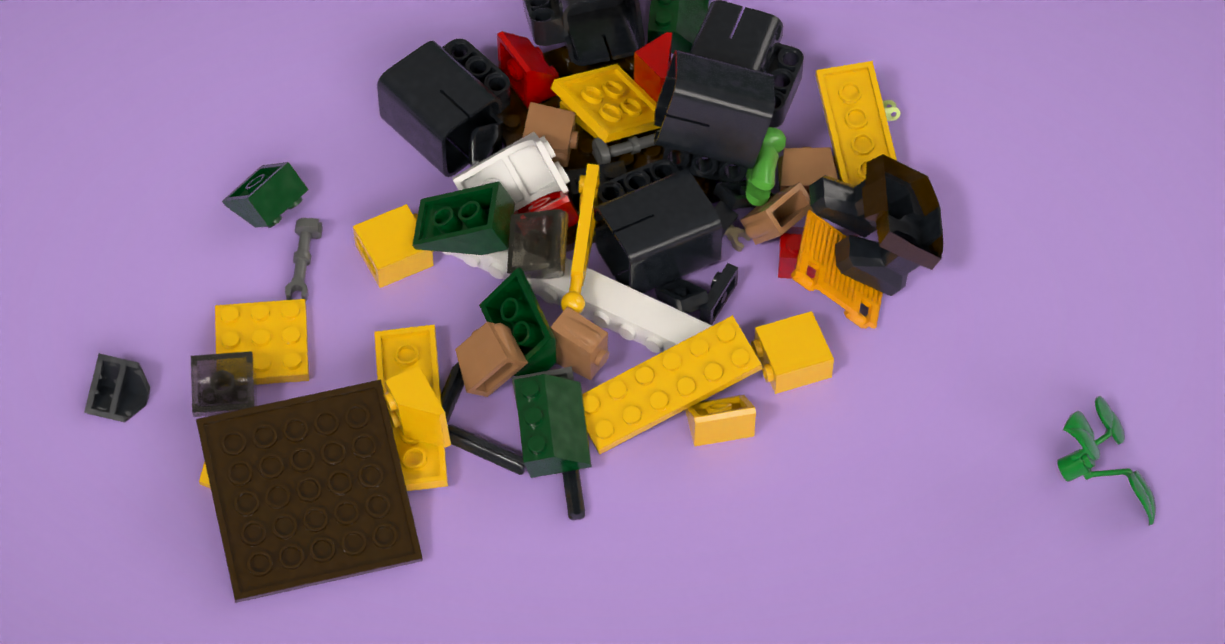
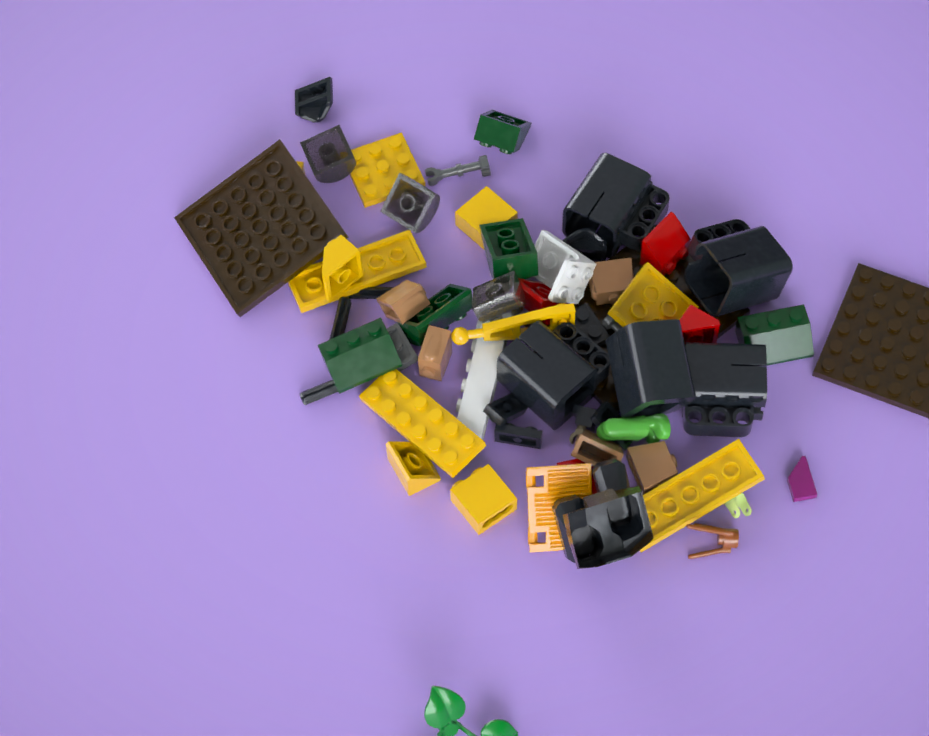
camera: 75 degrees right, 5 degrees up
(340, 316) = (411, 204): none -> clear smoke brick
(869, 46) = (801, 482): none -> magenta tile
(920, 135) = (725, 536): none -> dark orange plant

